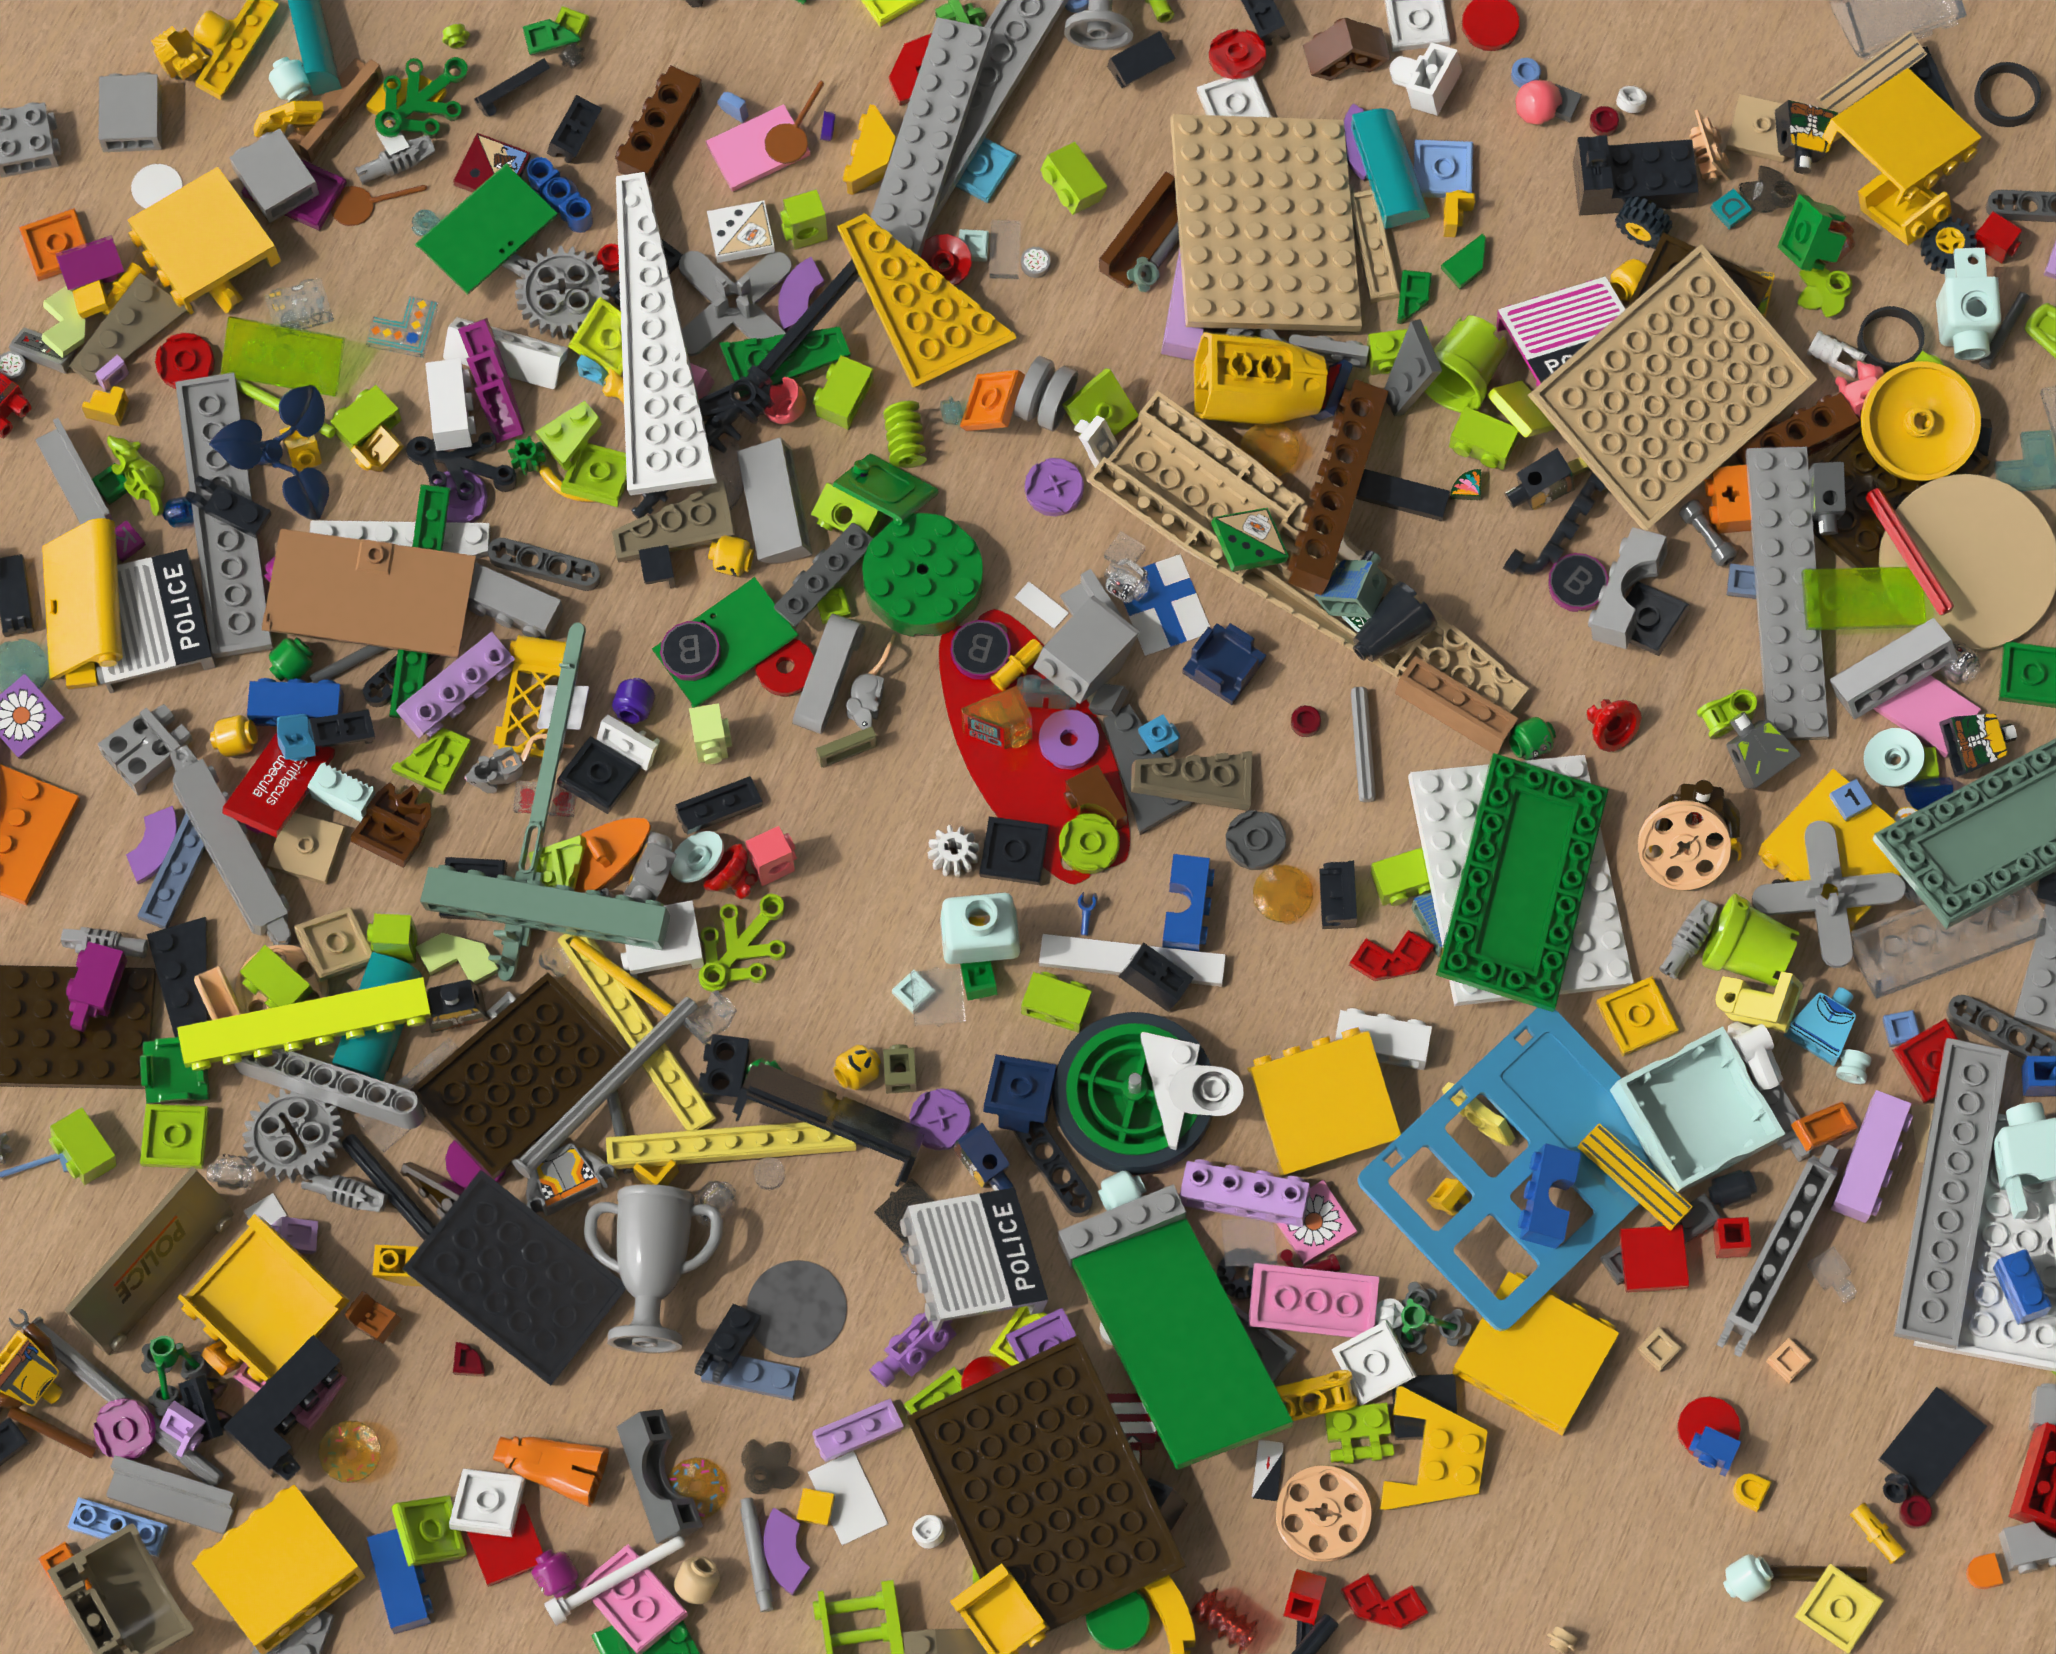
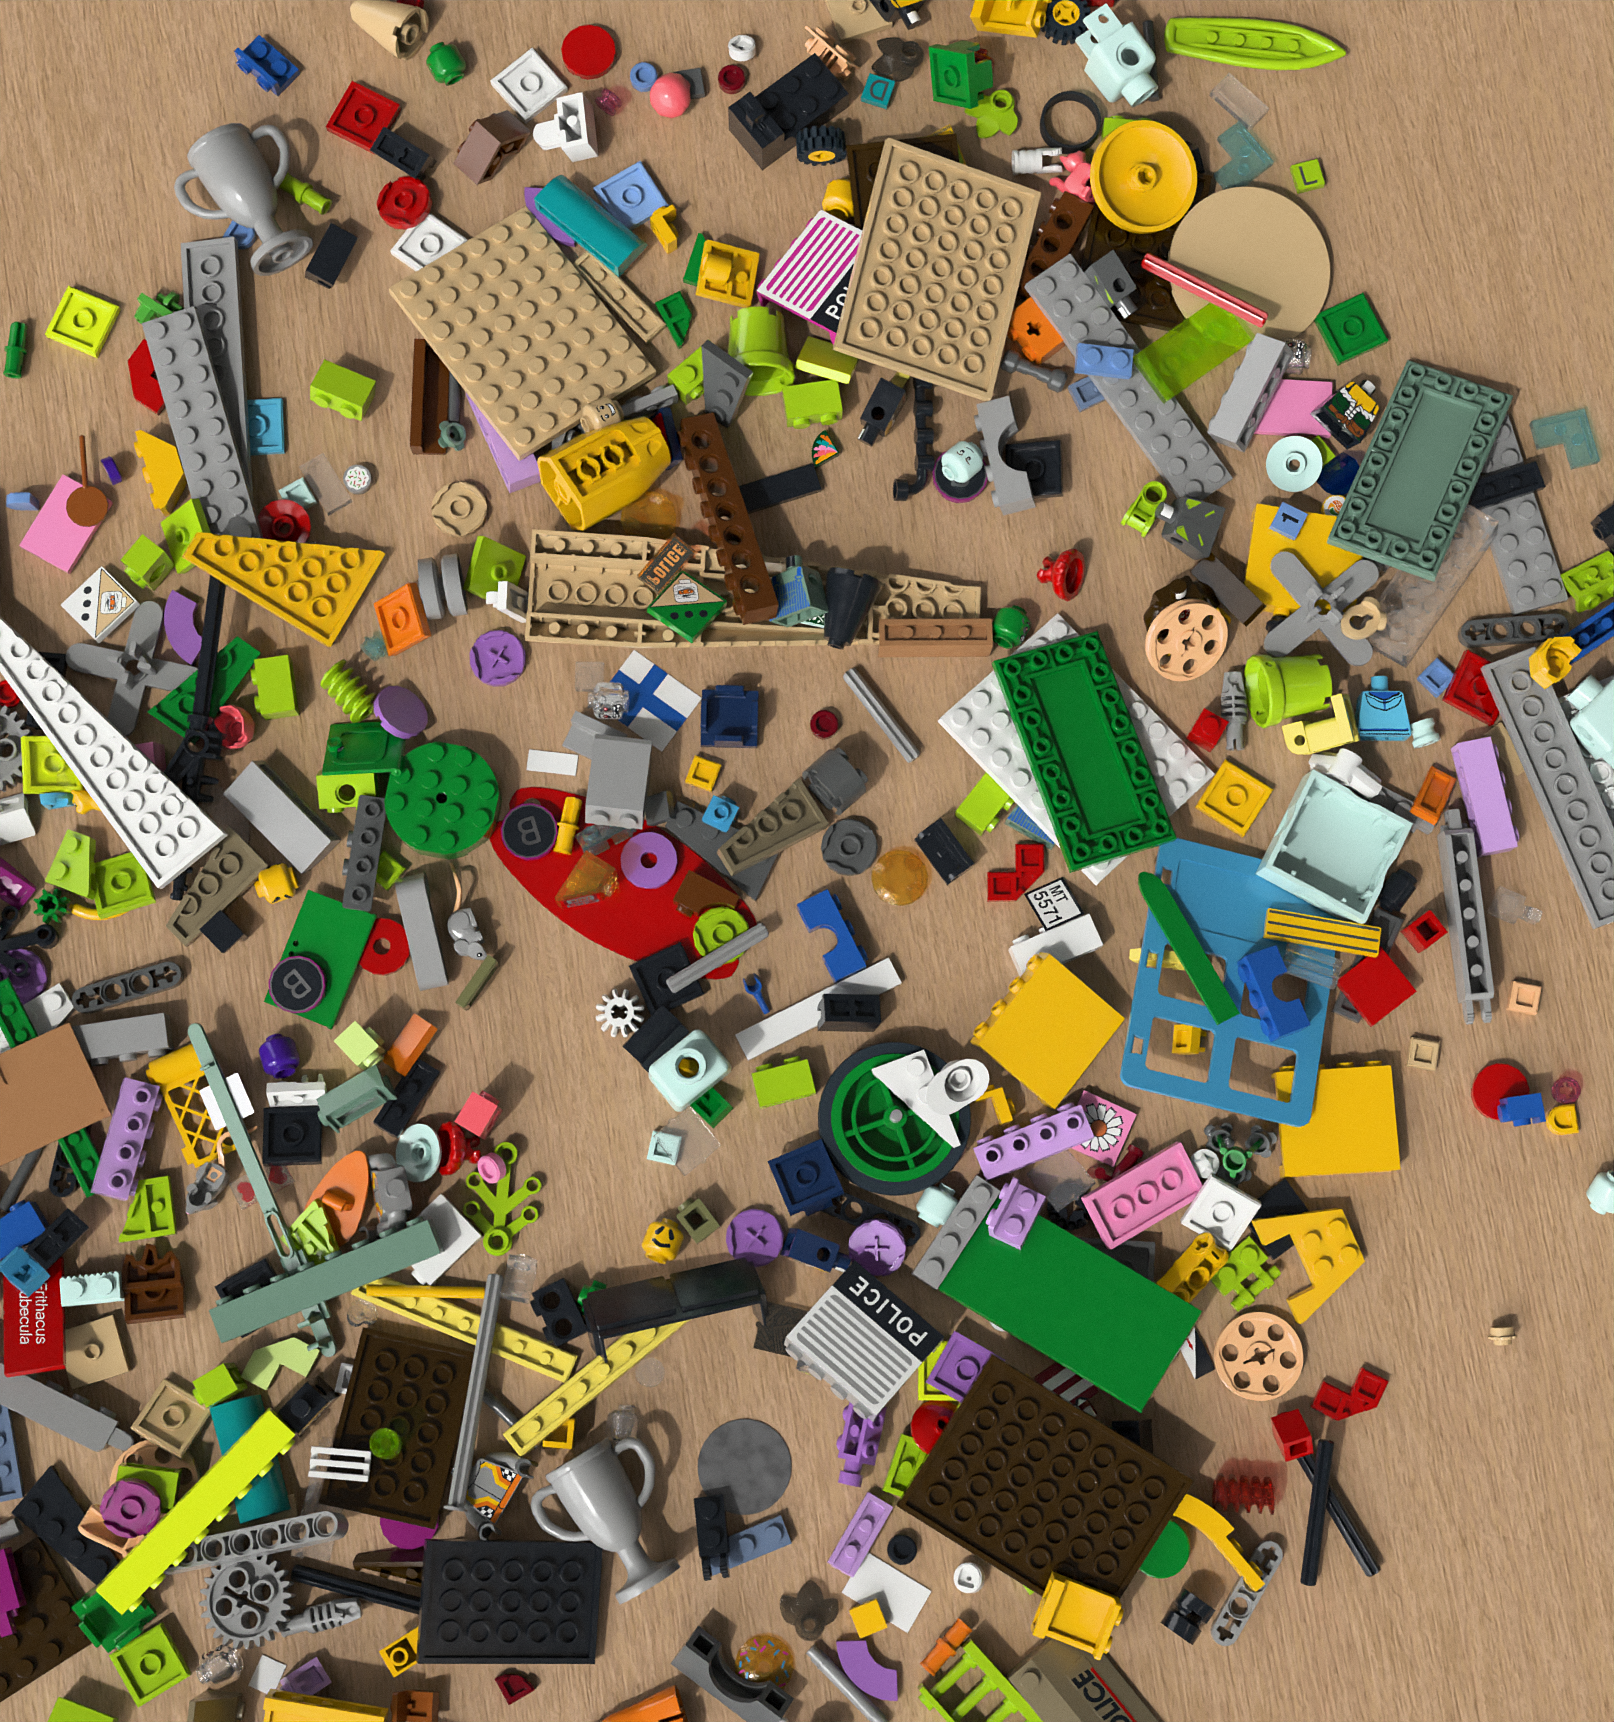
camera: 40 degrees left, 10 degrees up
(250, 984) = (131, 1507): none -> magenta tile
(431, 1052) = (314, 1461): none -> white tile
(499, 1069) = (381, 1442): none -> clear neon green wheel
(673, 775) = (355, 1098): none -> sand green window
(751, 909) = (491, 1167): none -> bright pink tile
(752, 762) = (409, 1044): none -> orange tile
(851, 206) = (181, 528): none -> lime plate
(867, 1576) = (945, 1647): none -> orange pin
(886, 1469) = (901, 1549): none -> black tile
(937, 477) = (400, 712): none -> medium lavender tile
(969, 884) = (655, 1037): none -> black panel
(1044, 1194) = (877, 1246): none -> medium lavender tile
(1071, 856) = (717, 957): none -> light grey axle
(1107, 341) = (459, 509): none -> tan tile
(1168, 696) = (703, 773): none -> yellow tile
(1185, 1240) = (1015, 1214): none -> lavender bracket
(1240, 1146) = (1003, 1107): none -> yellow bracket
(1255, 491) = (666, 564): none -> clear orange tile
(1281, 771) = (835, 780): none -> dark grey brick
(1286, 329) = (601, 414): none -> tan head
(1406, 1001) = (1054, 904): none -> white sticker
(1478, 75) = (608, 102): none -> clear pink bush
(1483, 282) = (727, 274): none -> yellow plate
(1498, 1107) = (1187, 948): none -> green piece
(1585, 568) = (962, 461): none -> light aqua head
(1596, 1206) = (1309, 976): none -> clear tile
(1651, 938) = (1207, 730): none -> red brick
(1755, 826) = (1228, 589): none -> dark brown tile
(1773, 557) = (1103, 361): none -> medium blue plate
(1781, 1464) = (1561, 1098): none -> clear pink bush
(1872, 917) = (1370, 607): none -> tan piece
(2013, 1068) = (1552, 659): none -> yellow hair

